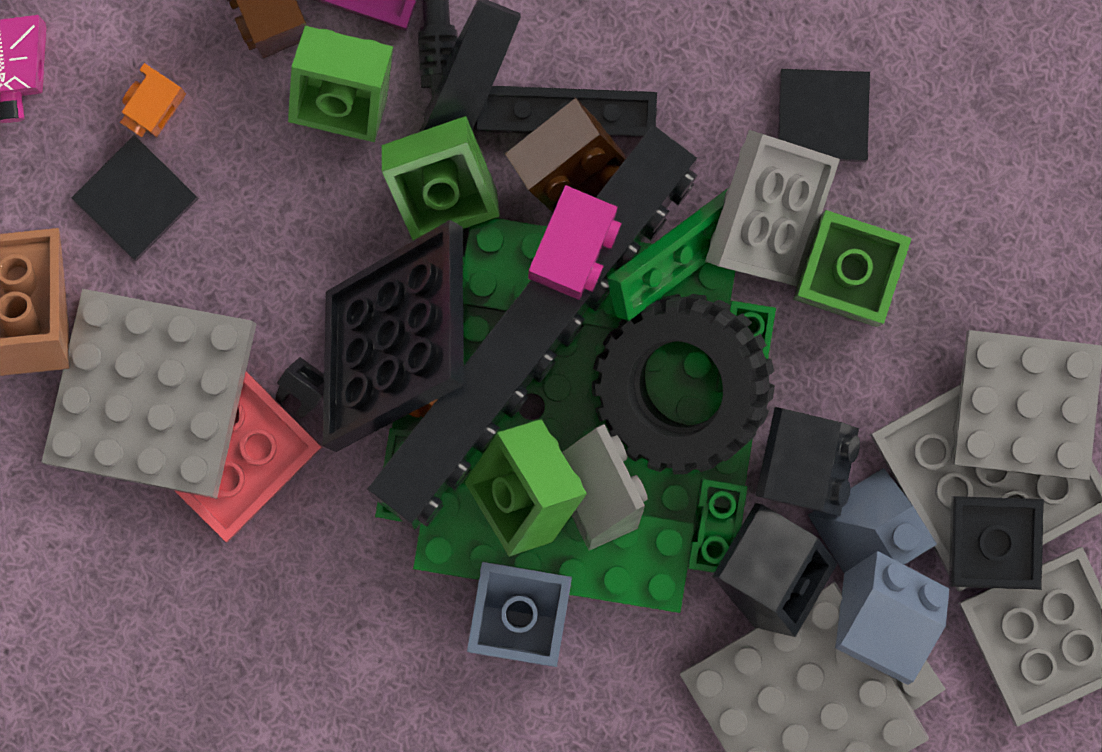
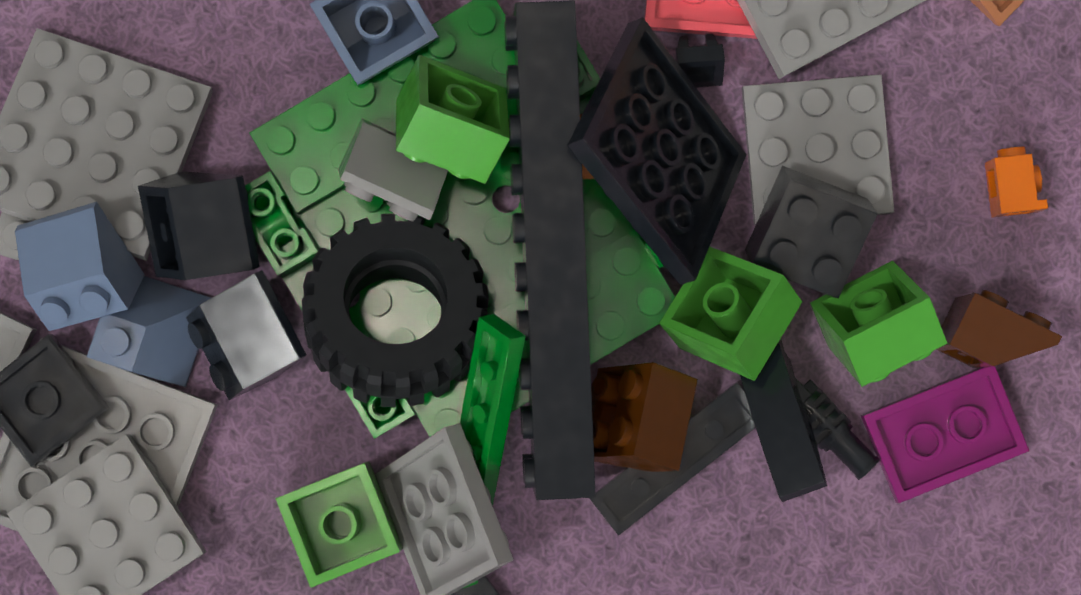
camera: 145 degrees right, 0 degrees up
(134, 198) = (960, 100): black tile -> none
(271, 249) = (821, 130): none -> light grey plate
(331, 191) = (811, 231): none -> black brick
(574, 242) = (576, 341): dark pink piece -> none

